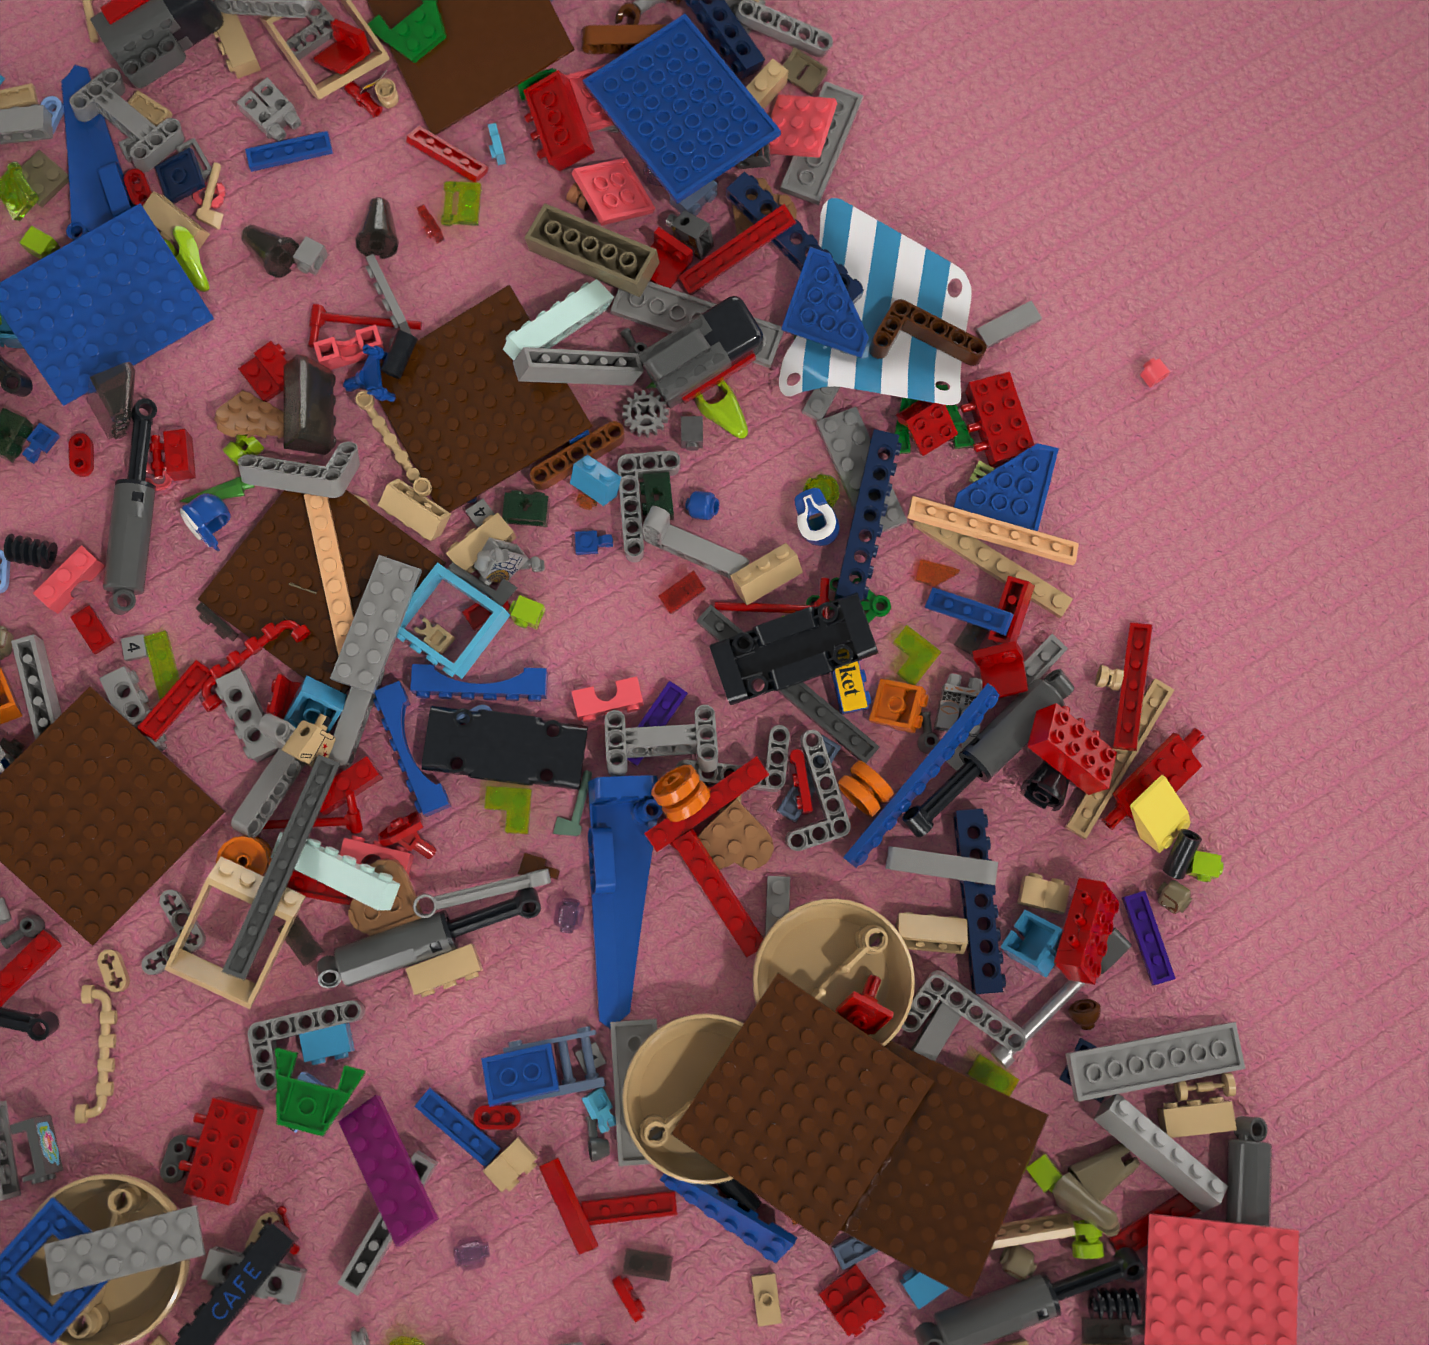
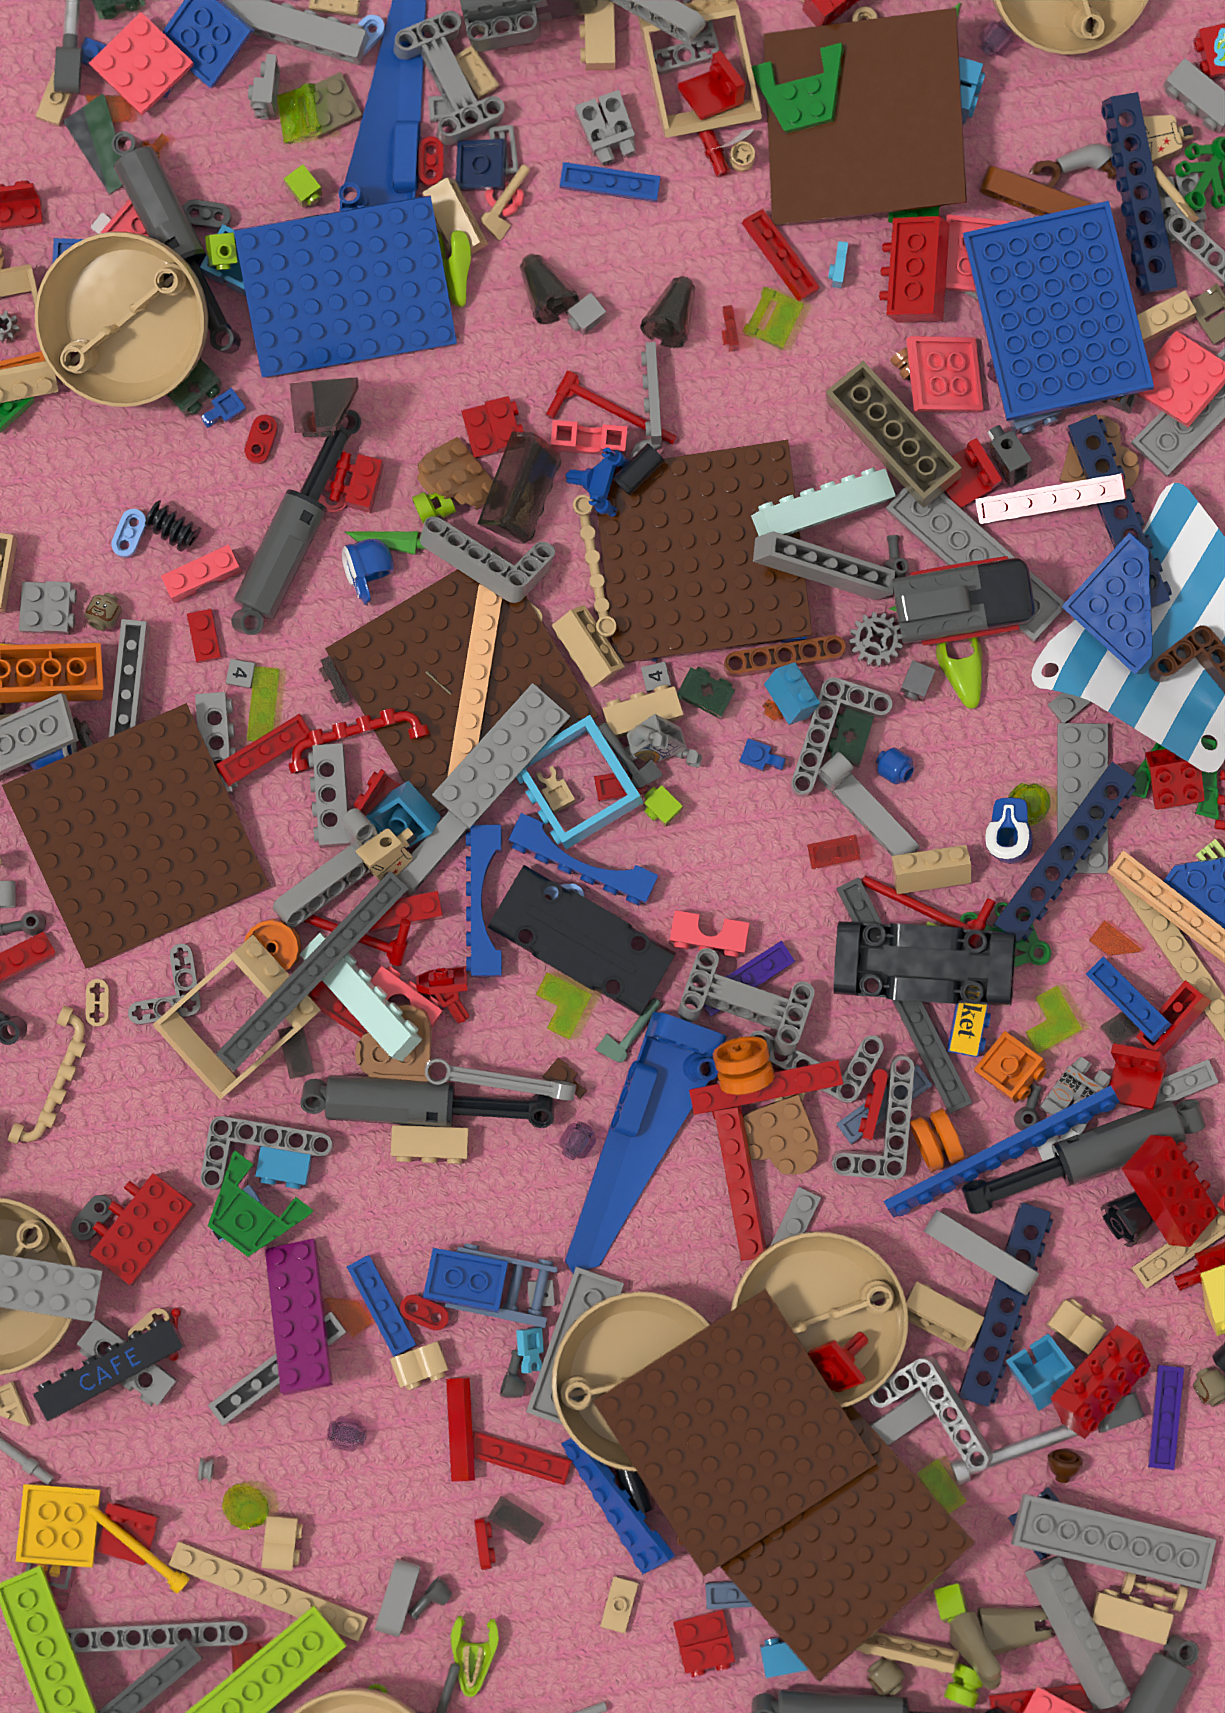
camera: 30 degrees right, 5 degrees up
(435, 1146) = (350, 1314): none -> clear orange tile

